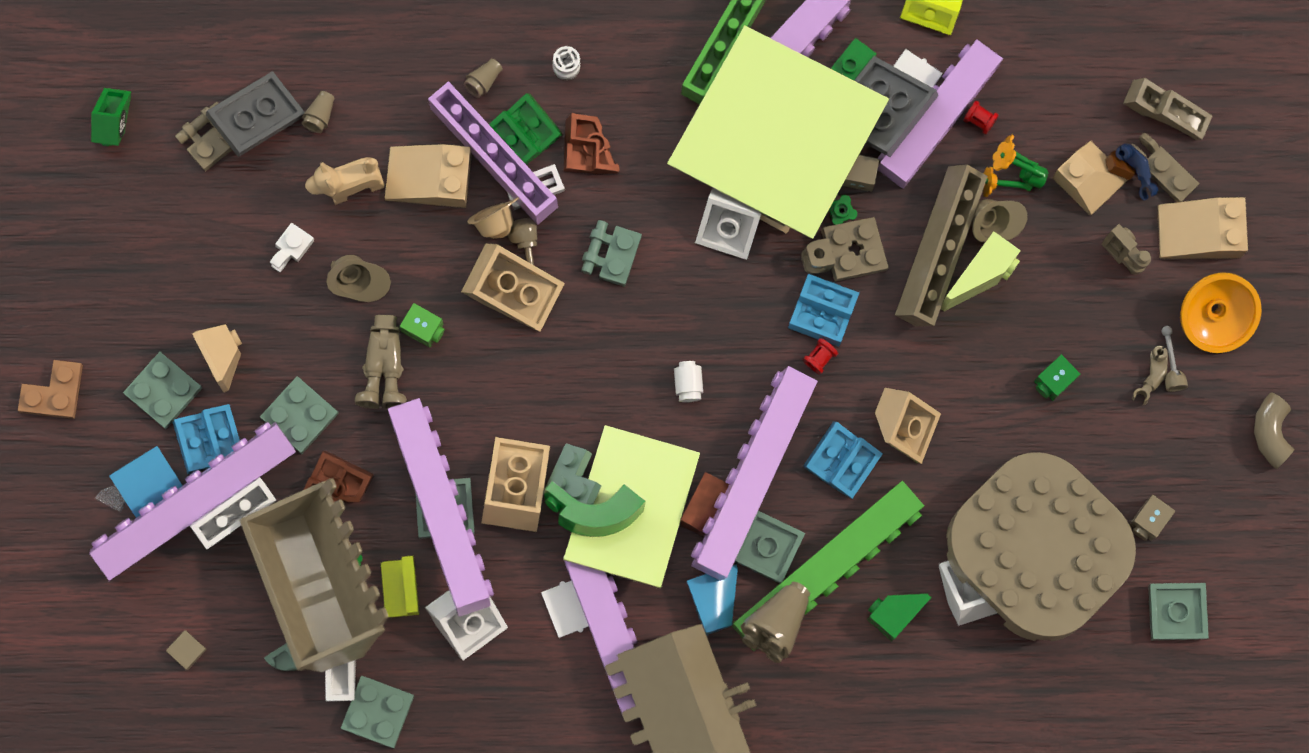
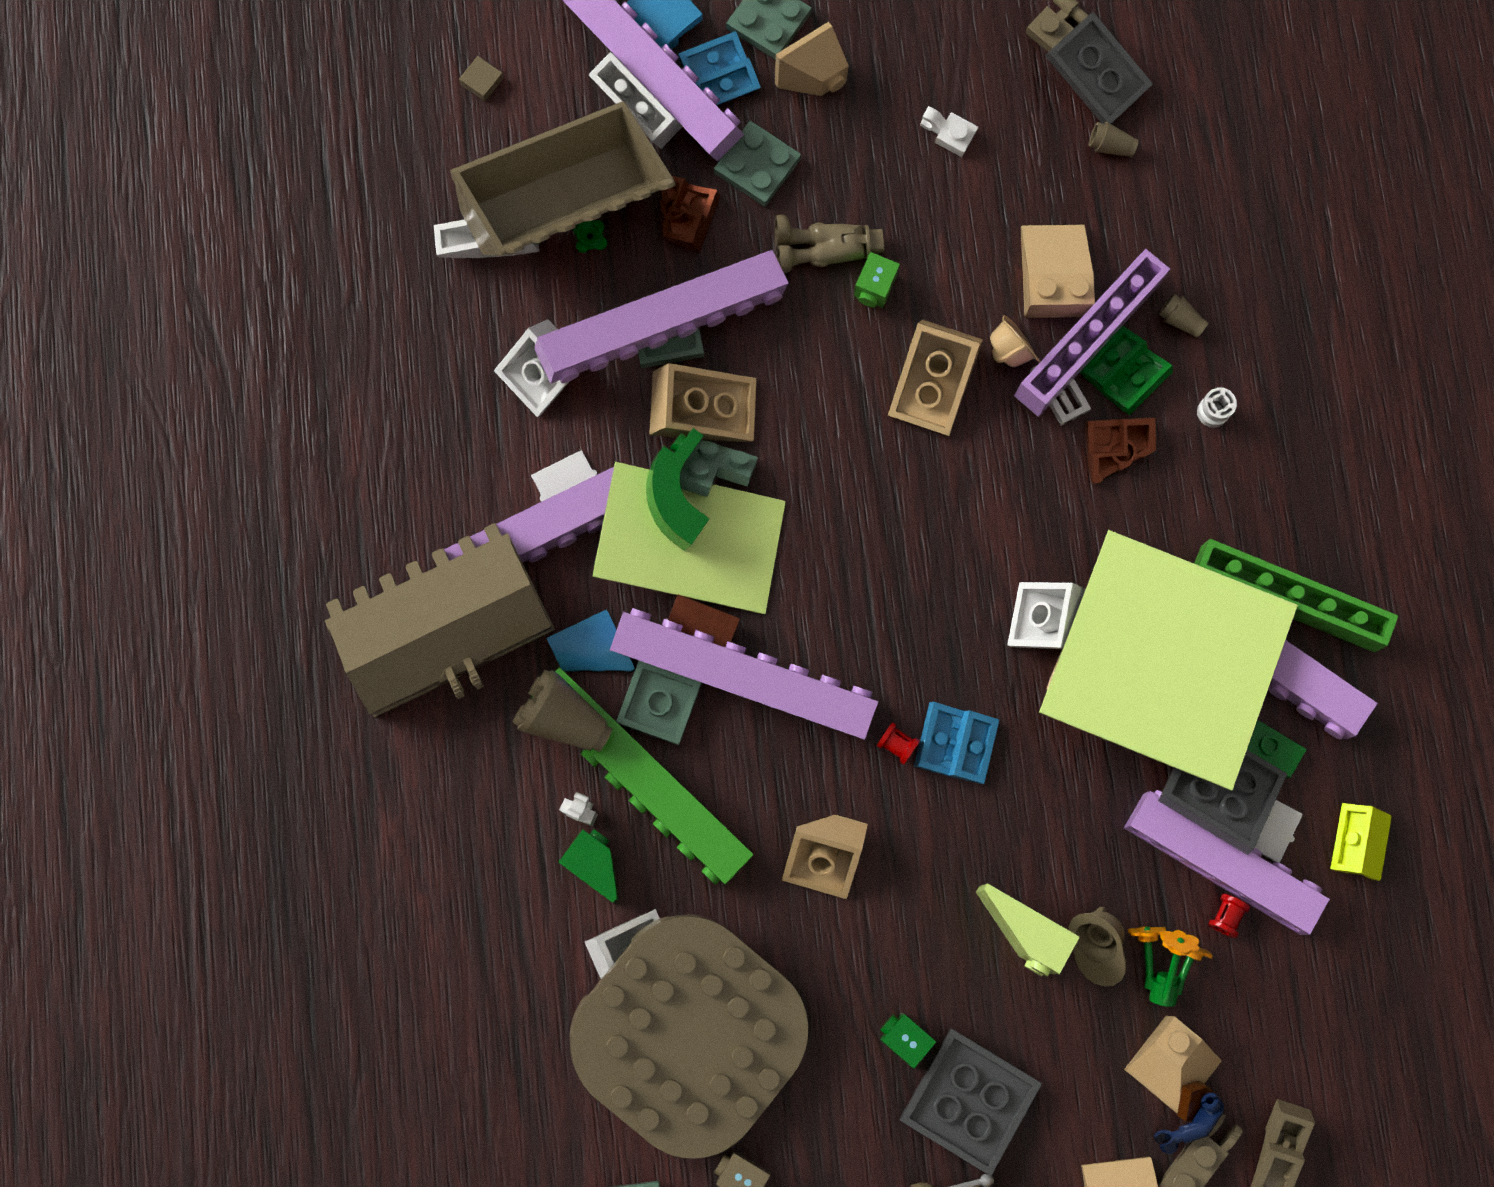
camera: 90 degrees right, 0 degrees up
(346, 179) = (1035, 173): tan animal -> none
(357, 279) = (920, 202): dark tan piece -> none
(377, 712) = (428, 286): sand green plate -> none
(400, 587) = (571, 295): neon yellow panel -> none
(525, 235) = (1000, 384): dark tan piece -> none
(619, 256) = (990, 495): sand green plate -> none
(688, 381) = (847, 589): white brick -> none
(834, 254) = (1032, 748): dark tan plate -> none
(842, 460) = (774, 783): dark azure slope -> none
(848, 214) = (1086, 743): green plate -> none
(851, 619) = (579, 809): none -> white plate
(862, 174) = (1134, 771): dark tan brick -> none
(941, 245) = (1057, 878): dark tan brick -> none
(1107, 335) = (970, 1101): none -> dark grey plate
(1122, 247) = (1088, 1109): dark tan plate -> none
(1158, 372) = (933, 1172): dark tan arm -> none

